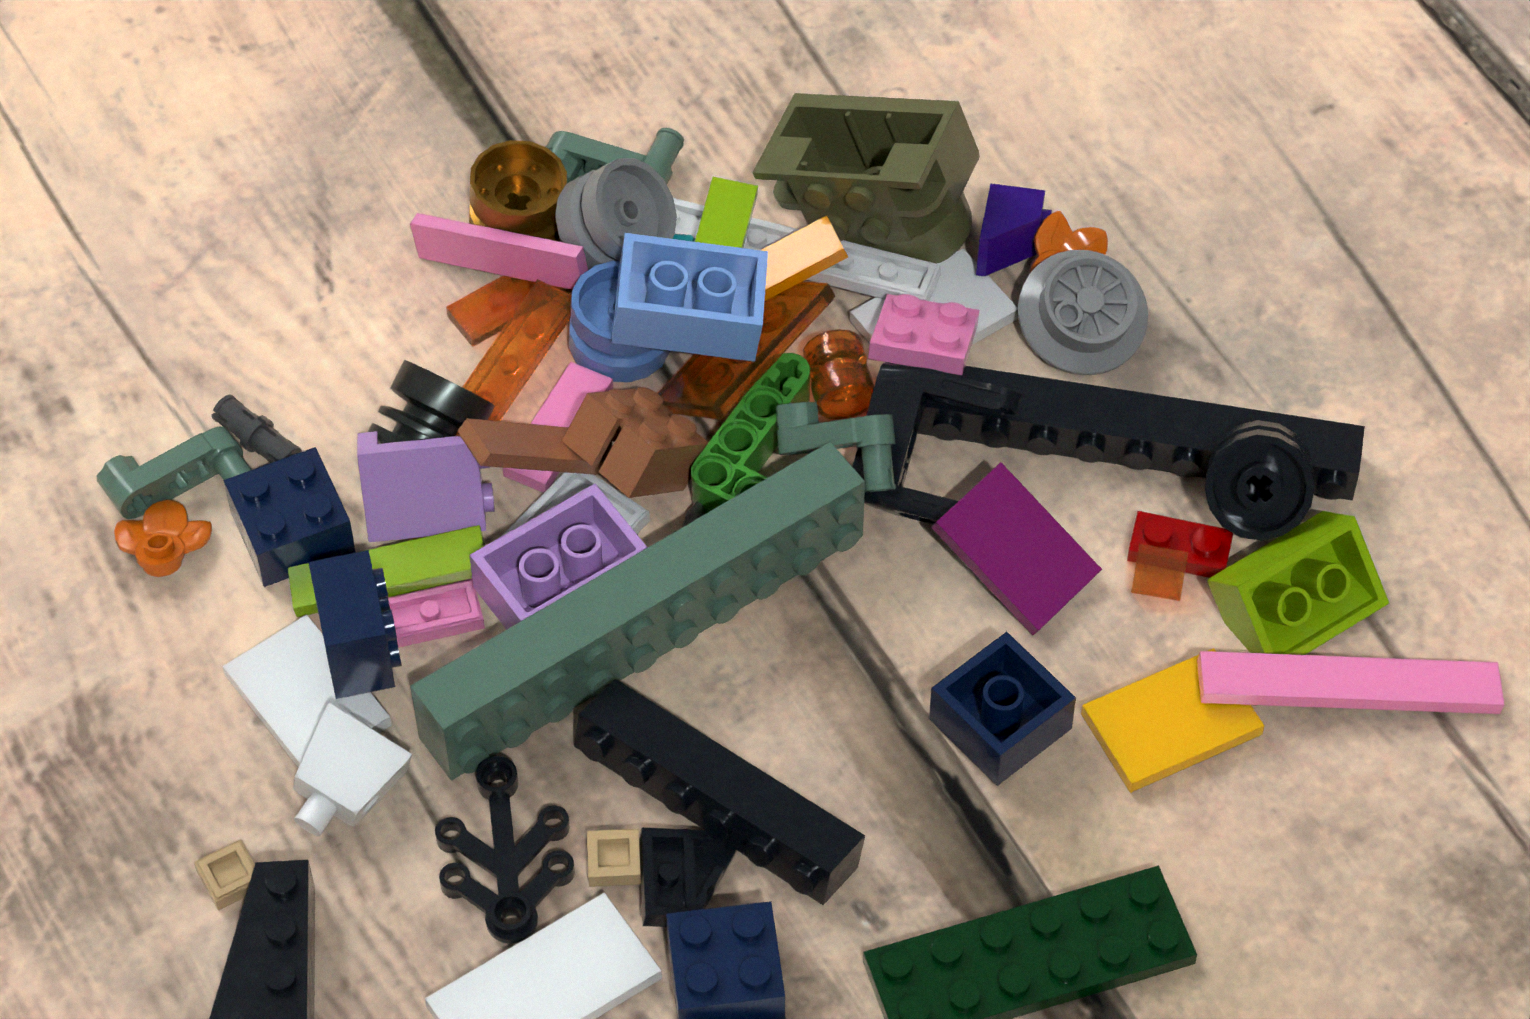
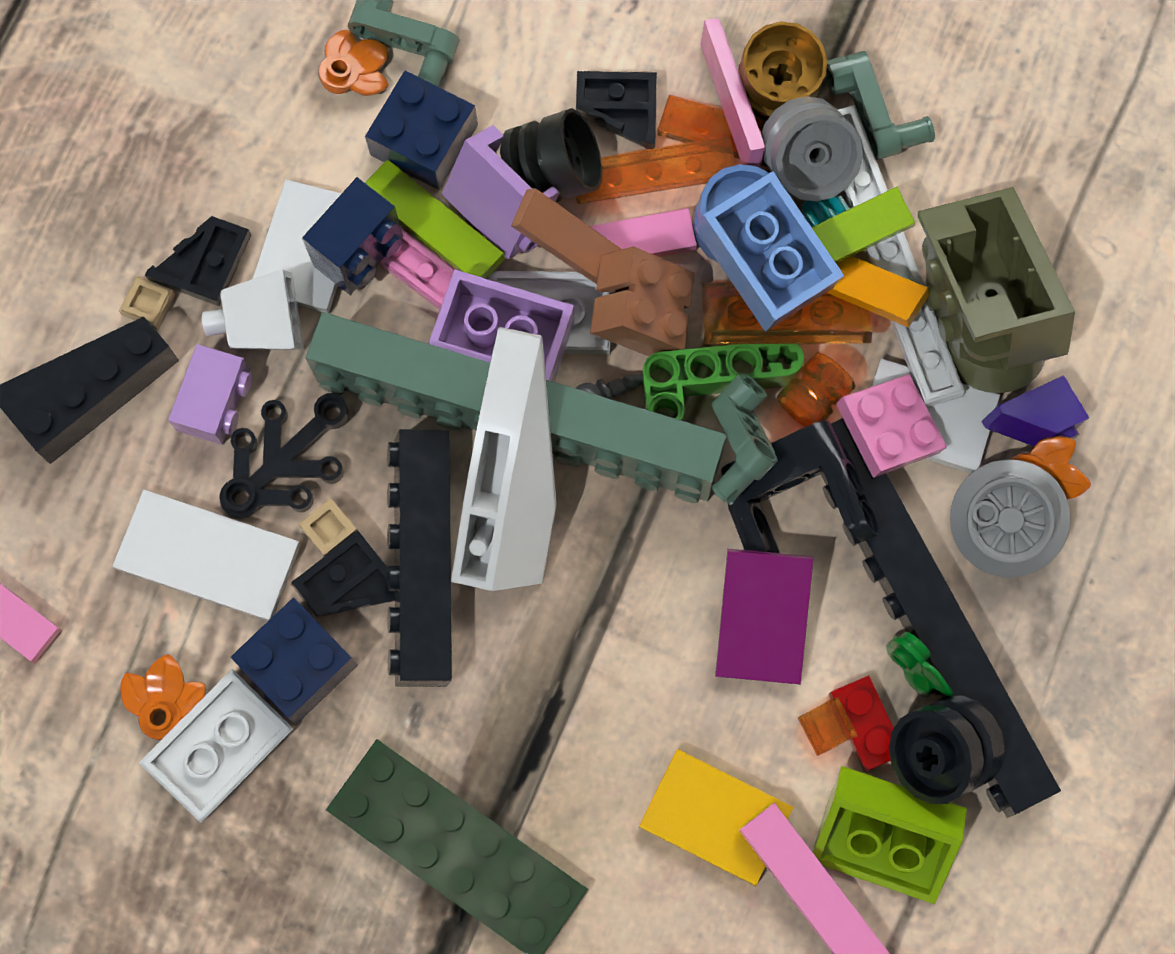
camera: 55 degrees right, 20 degrees up
(238, 791) = (203, 261): none -> black wing
(254, 431) = (473, 58): dark grey pin -> none
(384, 871) = (211, 395): none -> lavender brick
(421, 338) = (620, 103): none -> black wing
(711, 637) = (510, 474): none -> white wedge
(1002, 708) = (623, 698): dark blue brick -> none
(1162, 459) = (911, 656): none -> green plate

